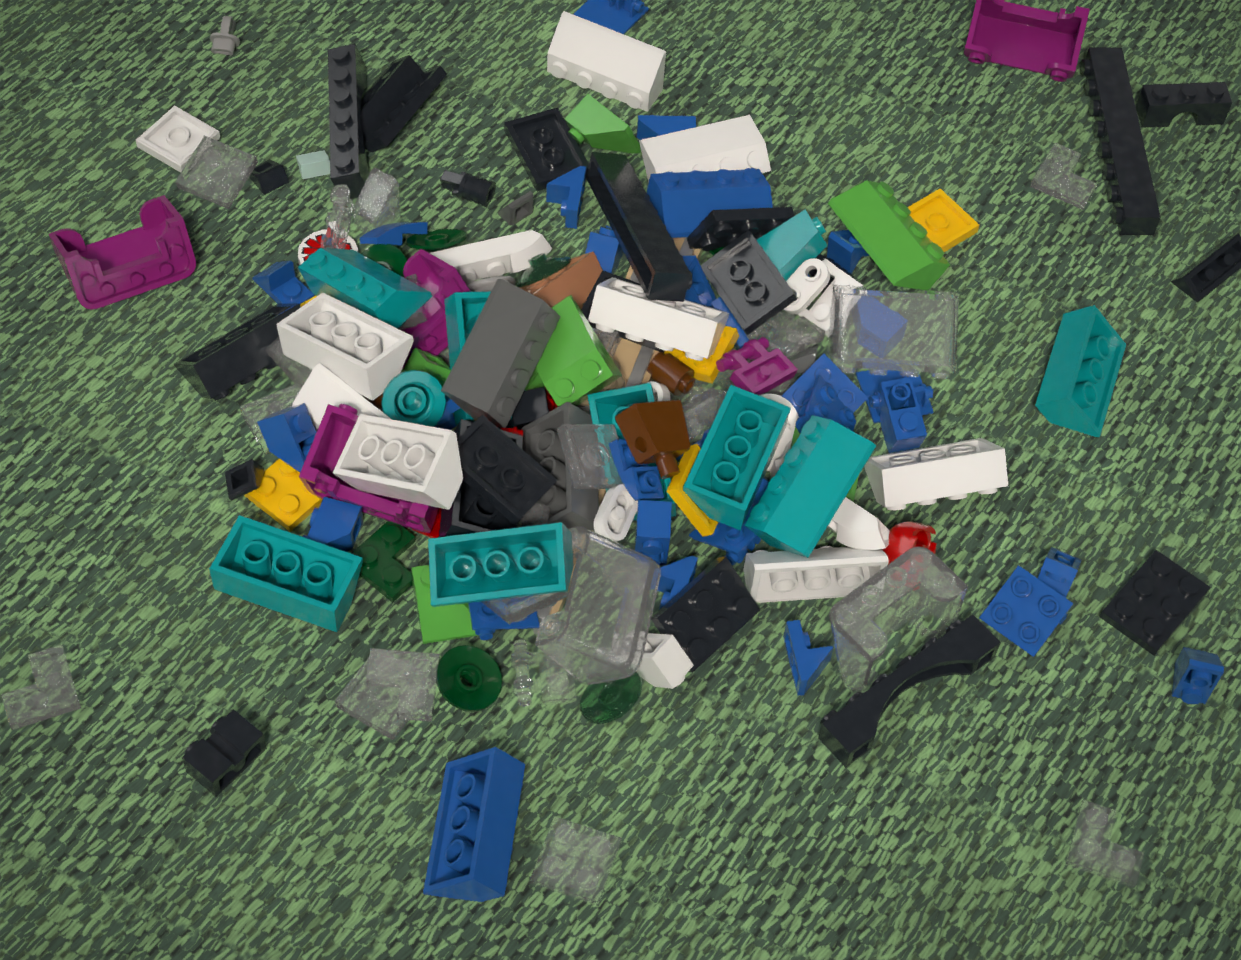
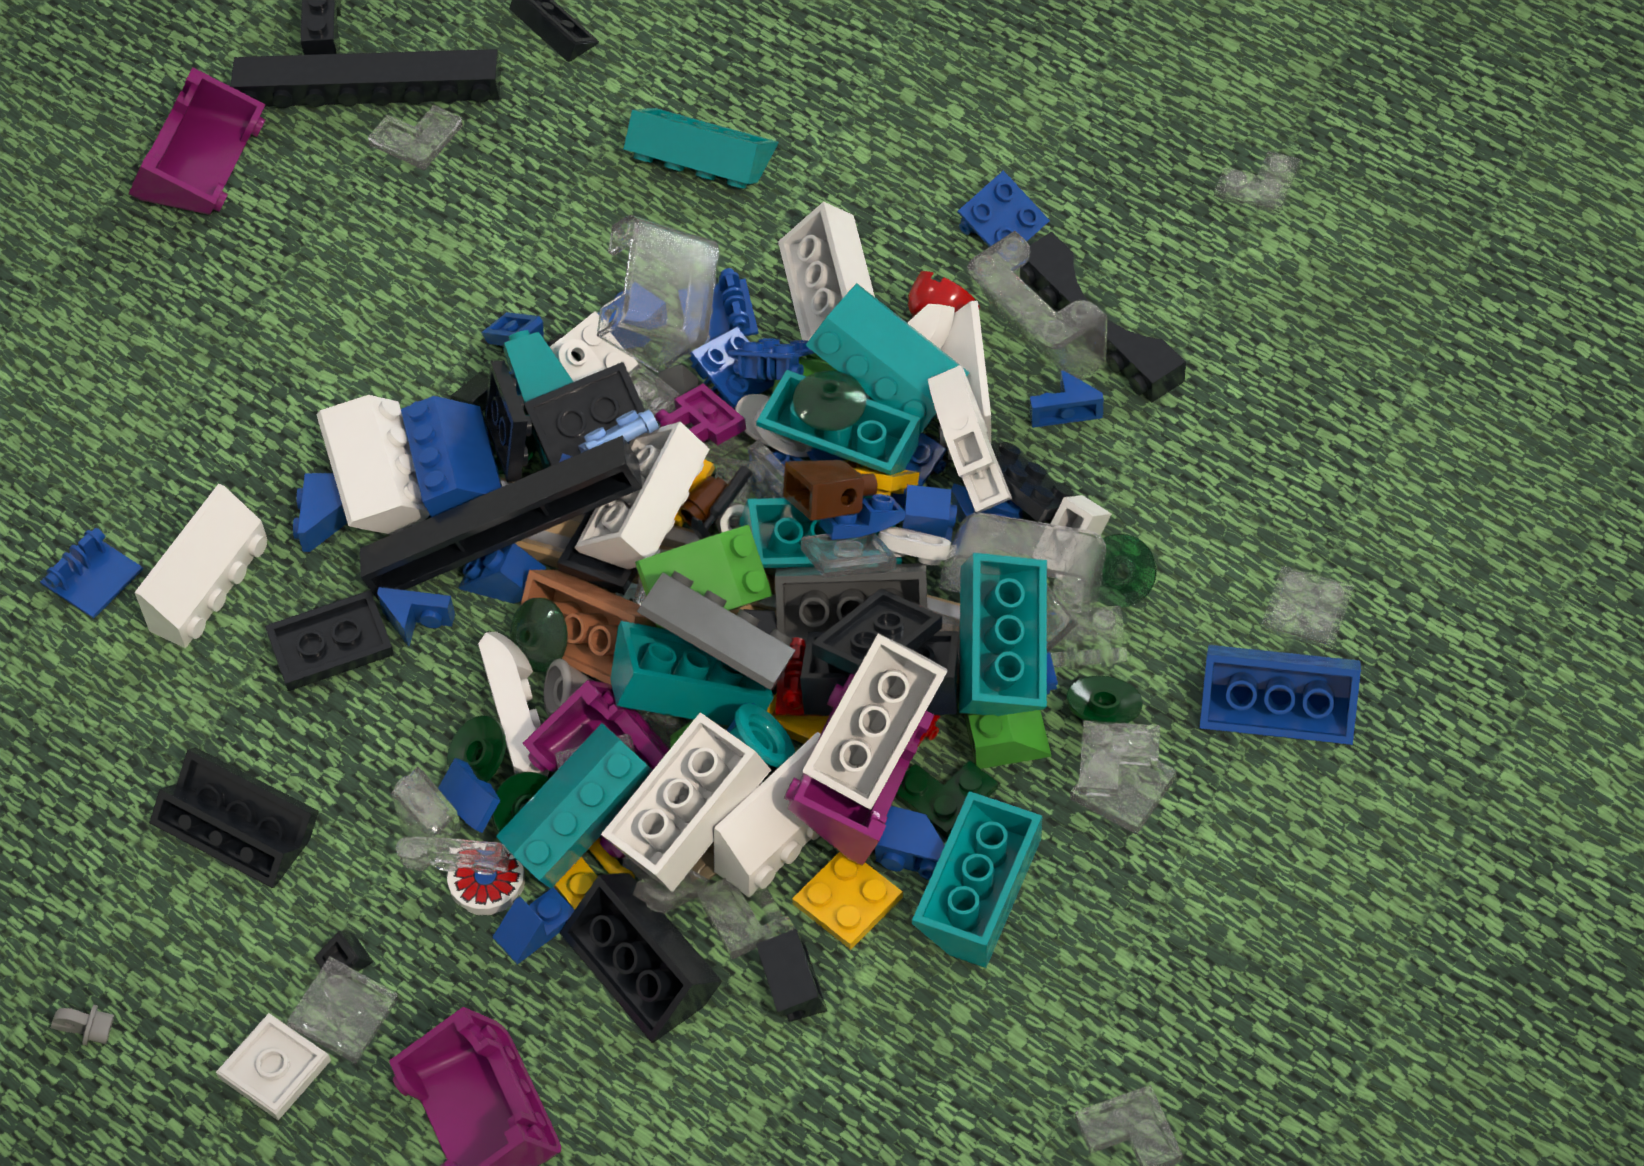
camera: 80 degrees left, 0 degrees up
(214, 448) = (791, 976): none -> black hinge
(225, 753) = (1206, 933): black brick -> none
(243, 479) = (844, 937): black slope -> none
(289, 434) = (791, 879): blue slope -> none
(313, 164) = (327, 903): light aqua slope -> none
(347, 148) = (216, 858): black arch -> none
(469, 187) = (389, 721): black hinge -> none
(518, 209) = (424, 671): dark grey slope -> none
(600, 127) = (313, 573): bright green slope -> none
(661, 378) = (722, 502): none -> black piece
(723, 300) = (629, 425): none -> light blue plate
(732, 540) = (968, 439): none -> white slope
(753, 449) = (832, 410): none -> clear green dish
(890, 235) = (506, 290): bright green slope -> none
(900, 415) = (767, 297): blue slope -> none
(943, 220) = (478, 256): yellow plate -> none
(1059, 570) = (953, 183): blue slope -> none
(1155, 602) = (985, 116): black plate -> none
(1196, 675) = (1077, 84): blue slope -> none

